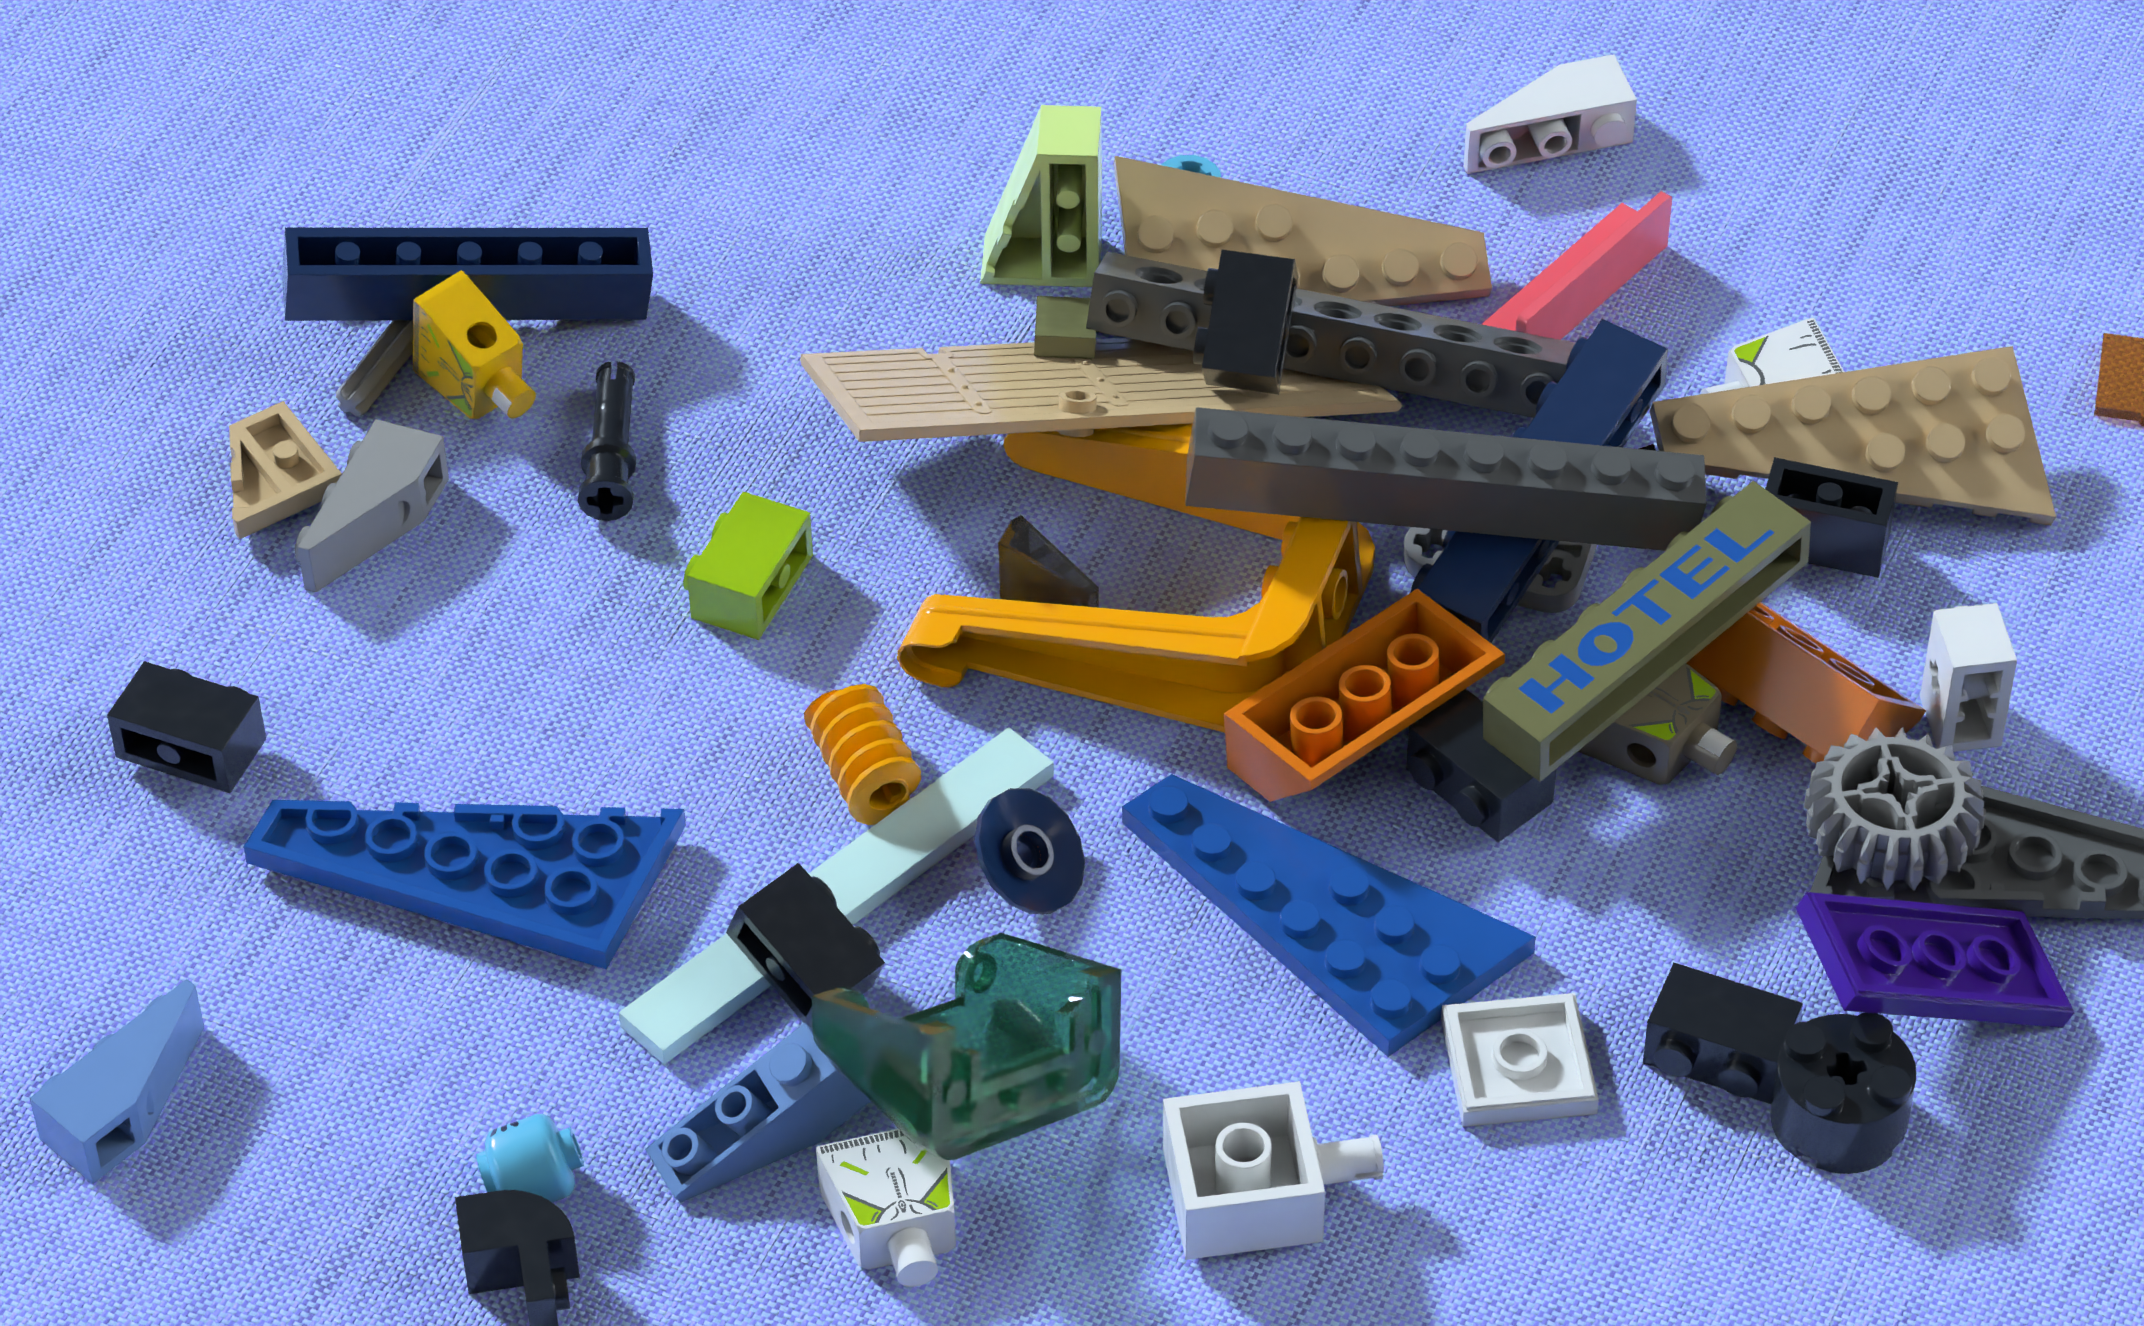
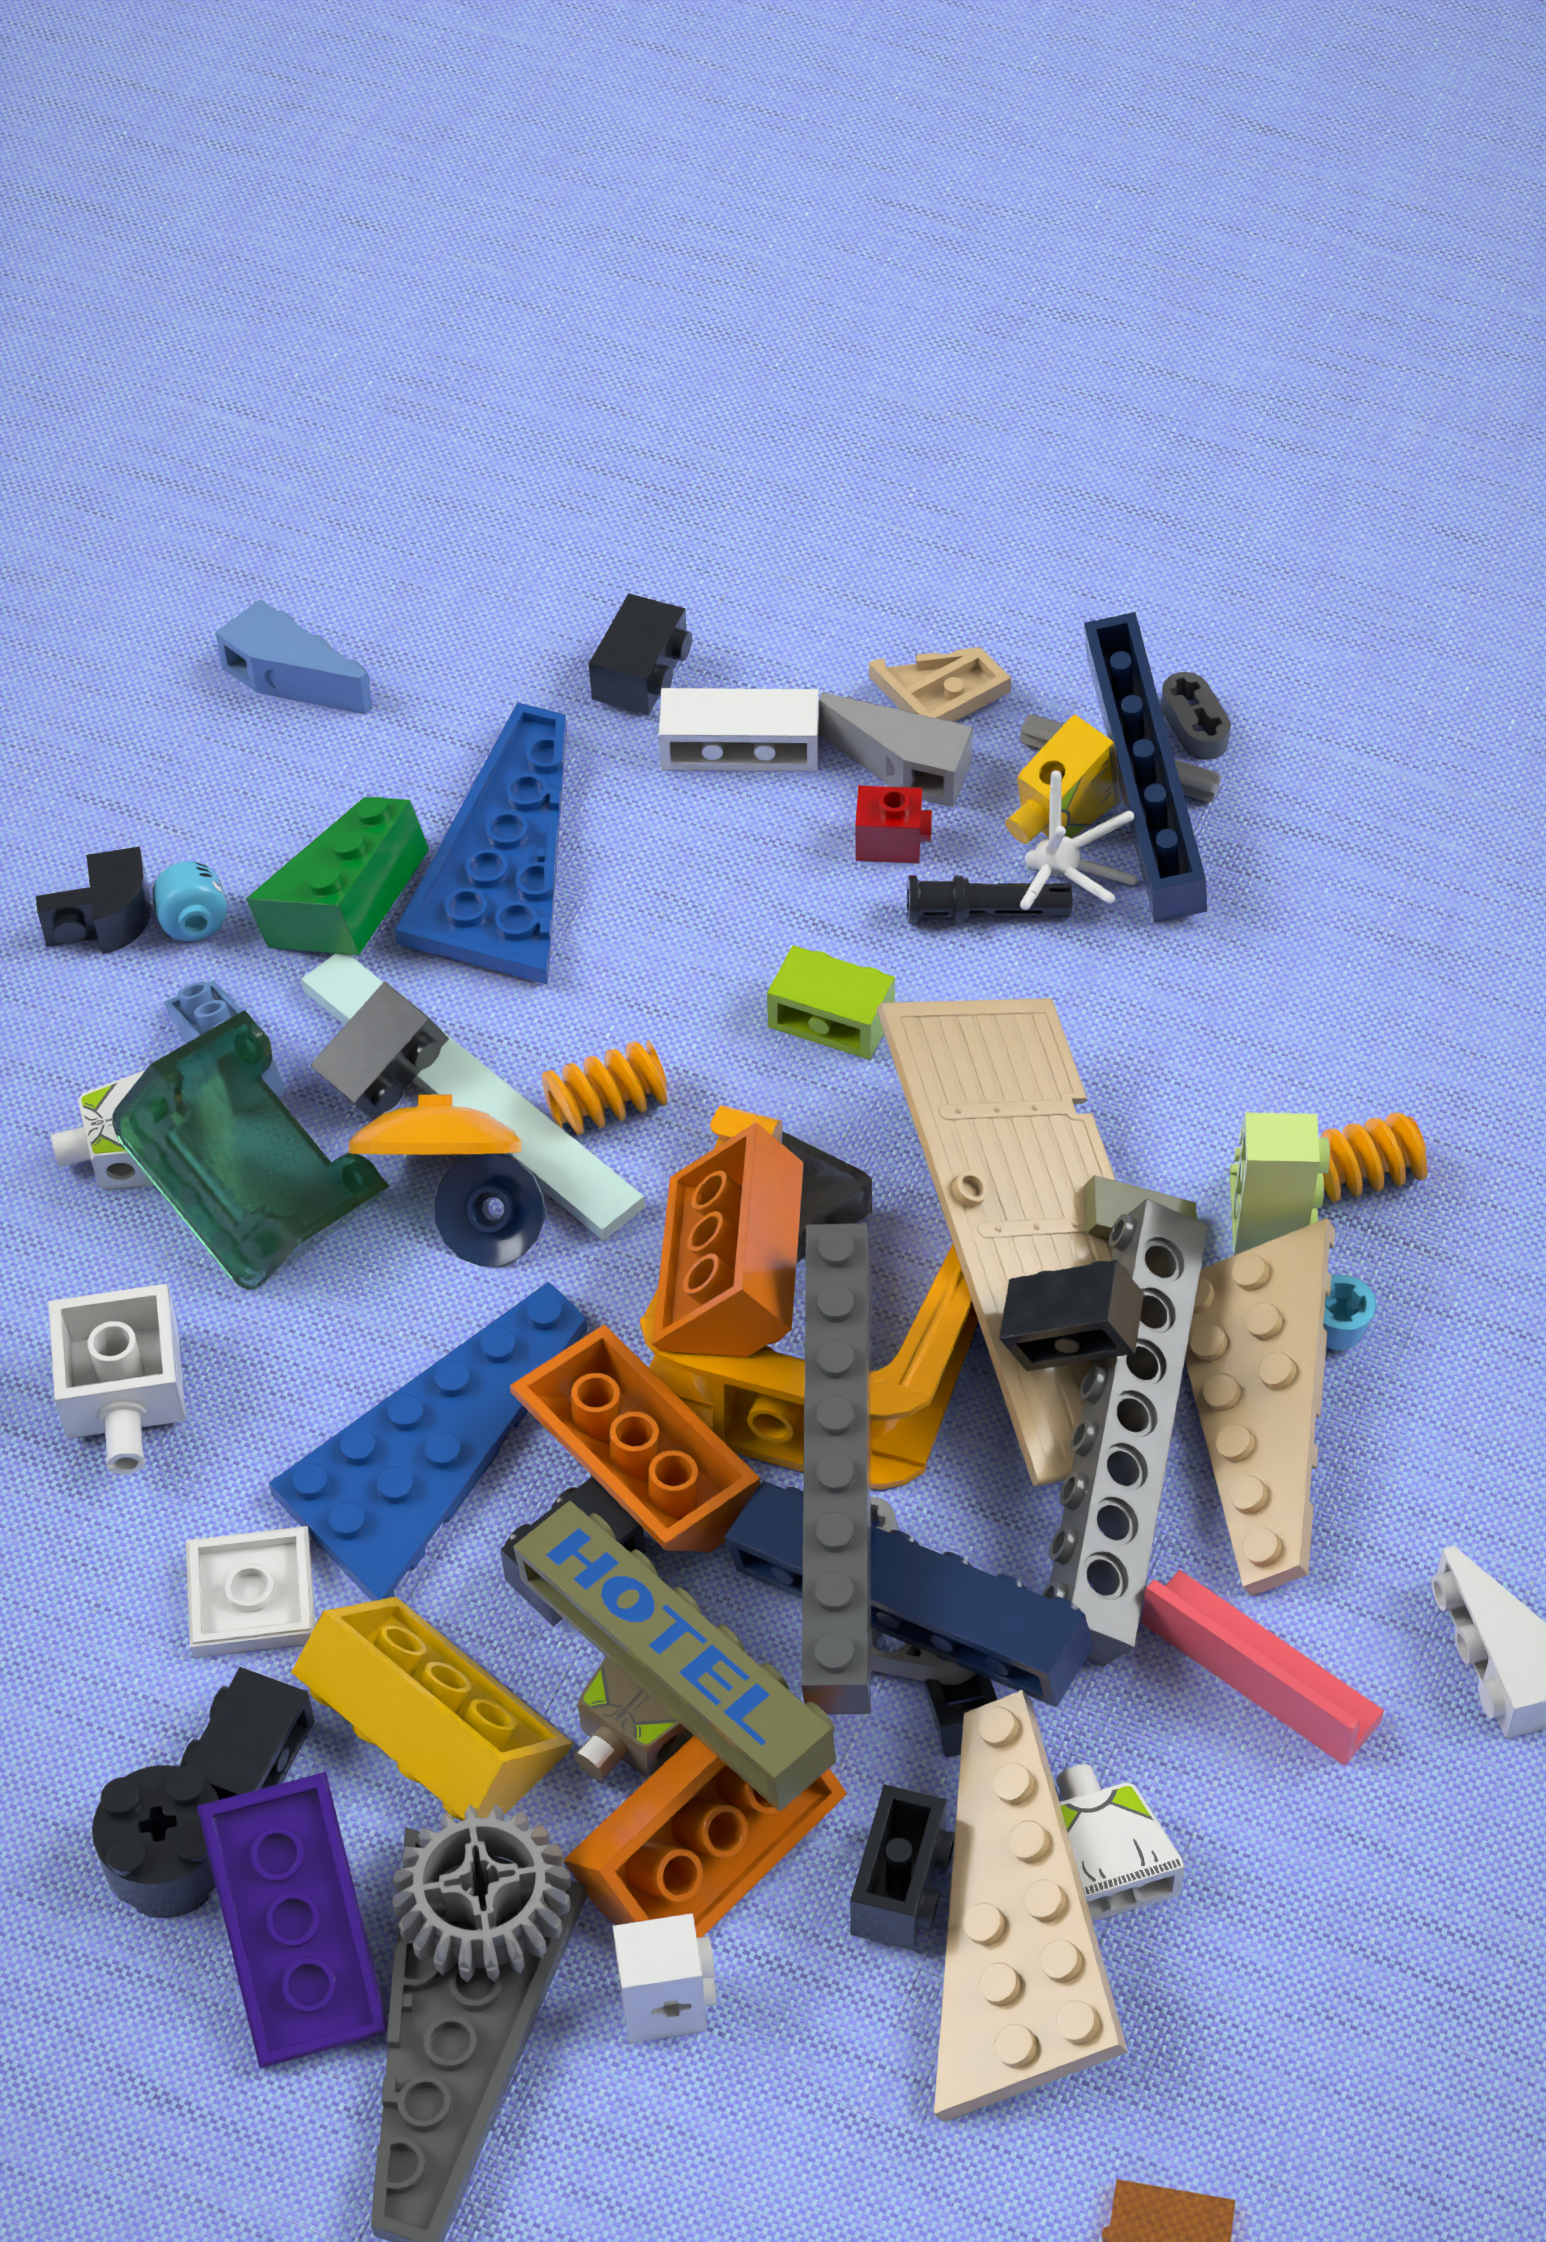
camera: 90 degrees right, 5 degrees up
(317, 643) = (739, 729): none -> white brick
(491, 513) = (890, 824): none -> red brick
(530, 991) = (343, 880): none -> green wedge
(566, 367) = (1062, 854): none -> white plant
(965, 869) = (435, 1129): none -> light orange dish
(985, 152) = (1372, 1152): none -> light orange piece
(1161, 578) = (730, 1249): none -> orange slope
(1668, 885) = (428, 1706): none -> yellow slope

